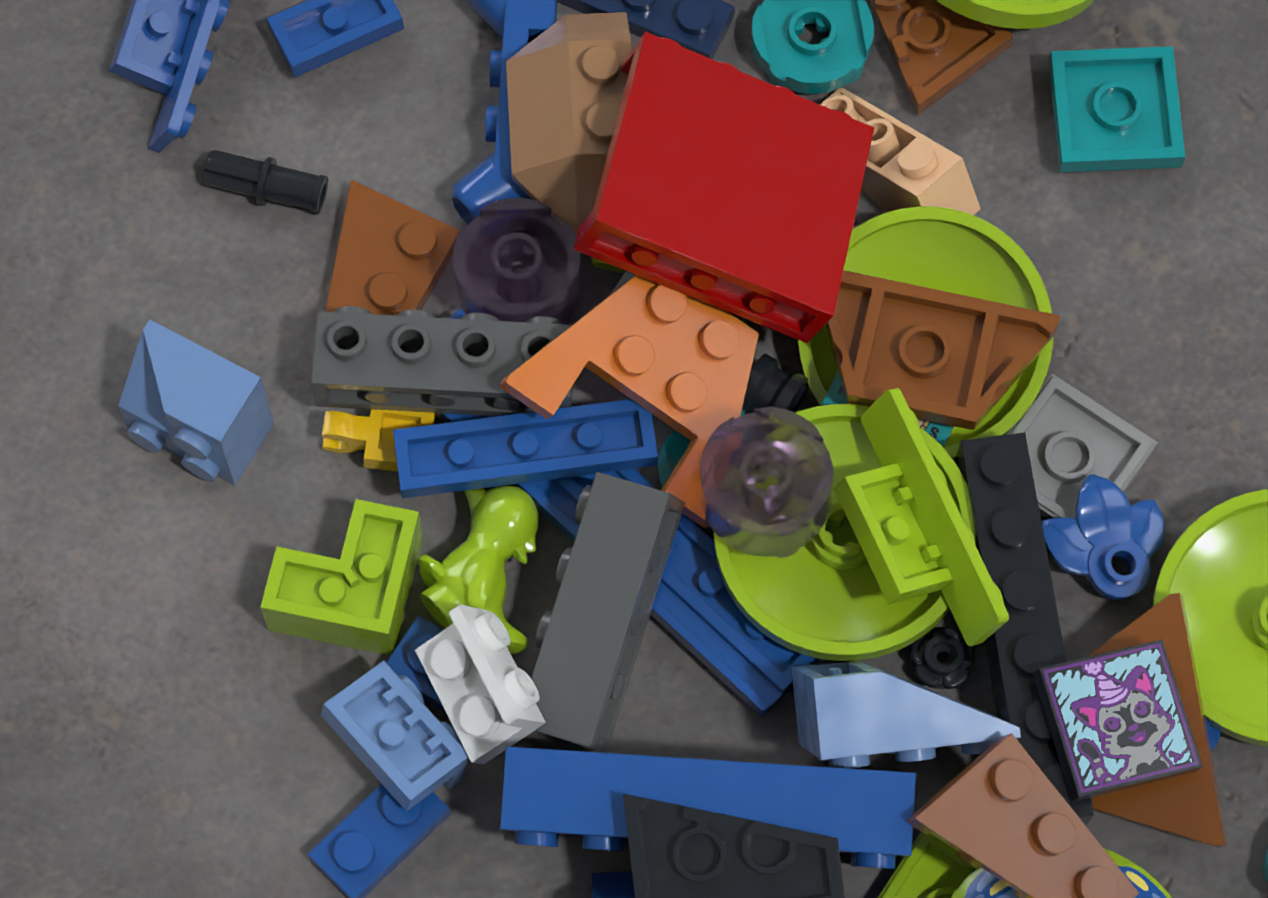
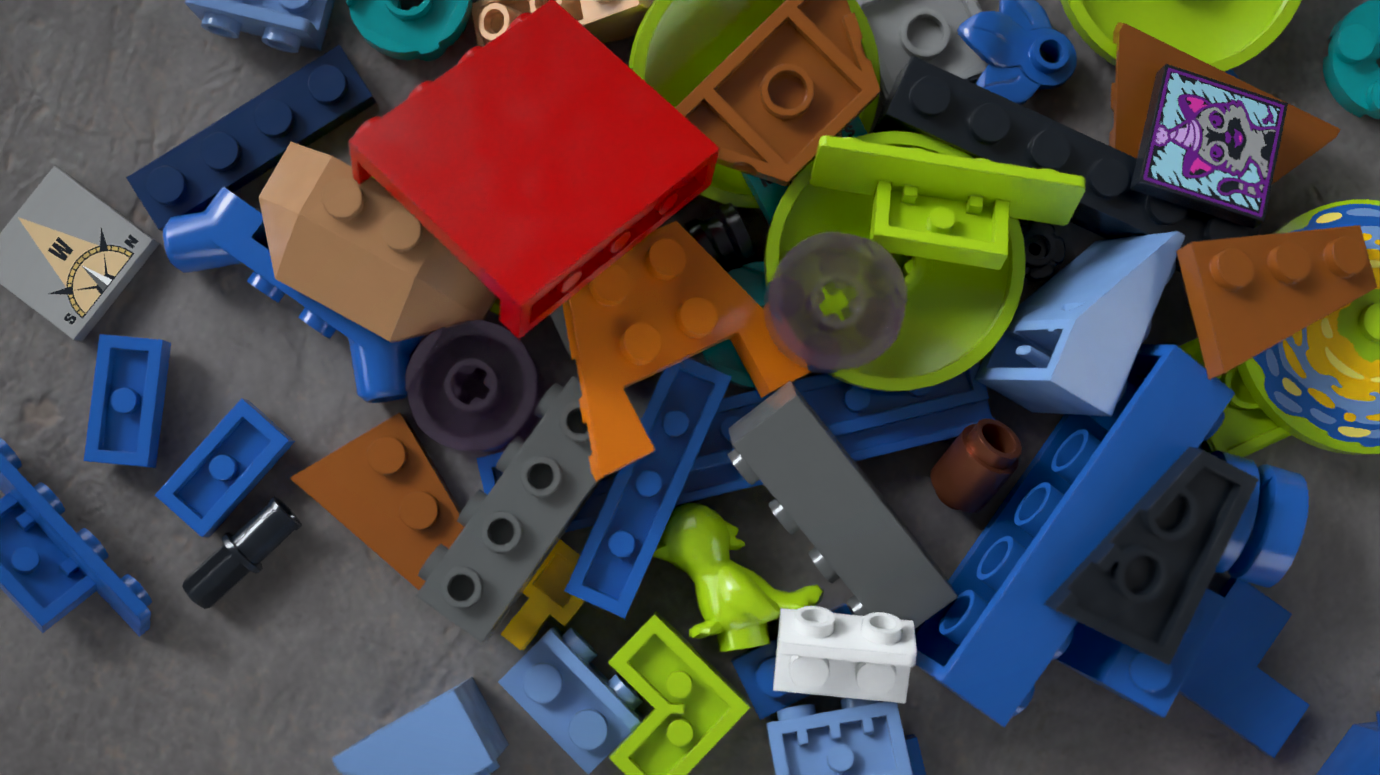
camera: 60 degrees left, 15 degrees up
(308, 501) = (573, 698): none -> medium blue bracket
(328, 127) = (224, 468): none -> blue plate
(716, 710) = (976, 465): none -> copper brick

